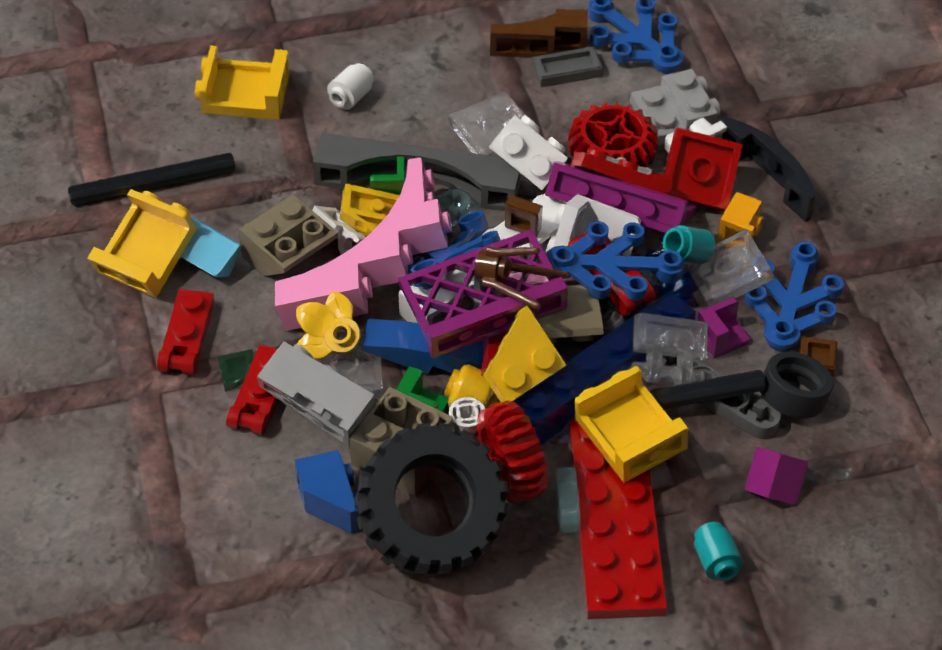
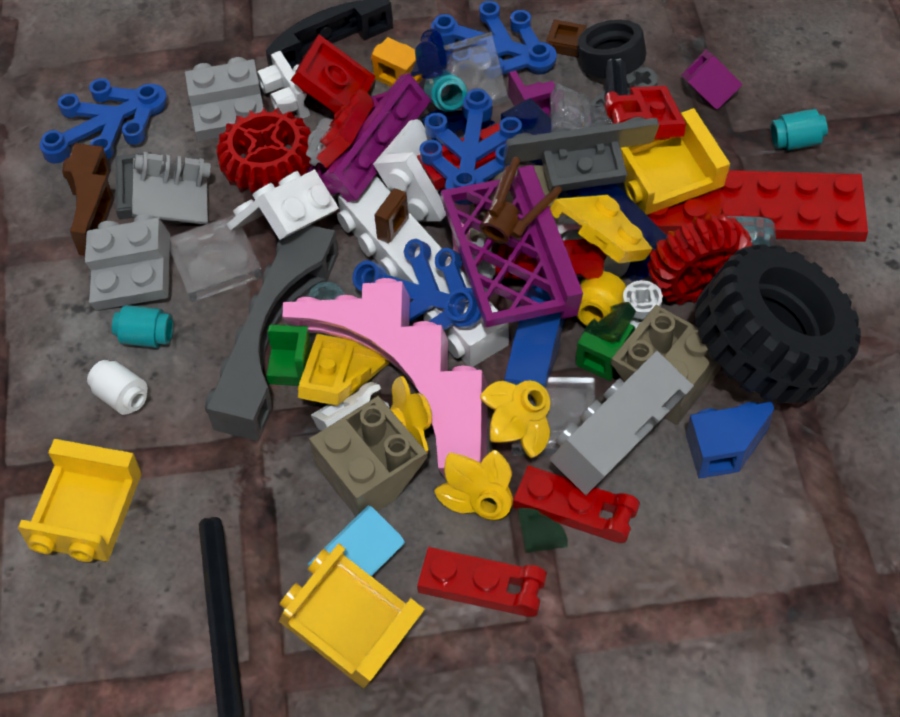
camera: 80 degrees left, 5 degrees up
(261, 321) = (474, 481): none -> yellow plate
(323, 256) = (412, 410): none -> yellow plate
(410, 91) = (142, 326): none -> teal brick
(430, 388) = (614, 324): none -> clear green tile
(475, 71) = (128, 262): none -> light grey plate
(556, 83) = (170, 188): none -> light grey hinge
(597, 338) = (582, 155): none -> dark grey bracket
(690, 400) = (647, 103): none -> red plate
(708, 216) = (431, 55): none -> clear blue hinge

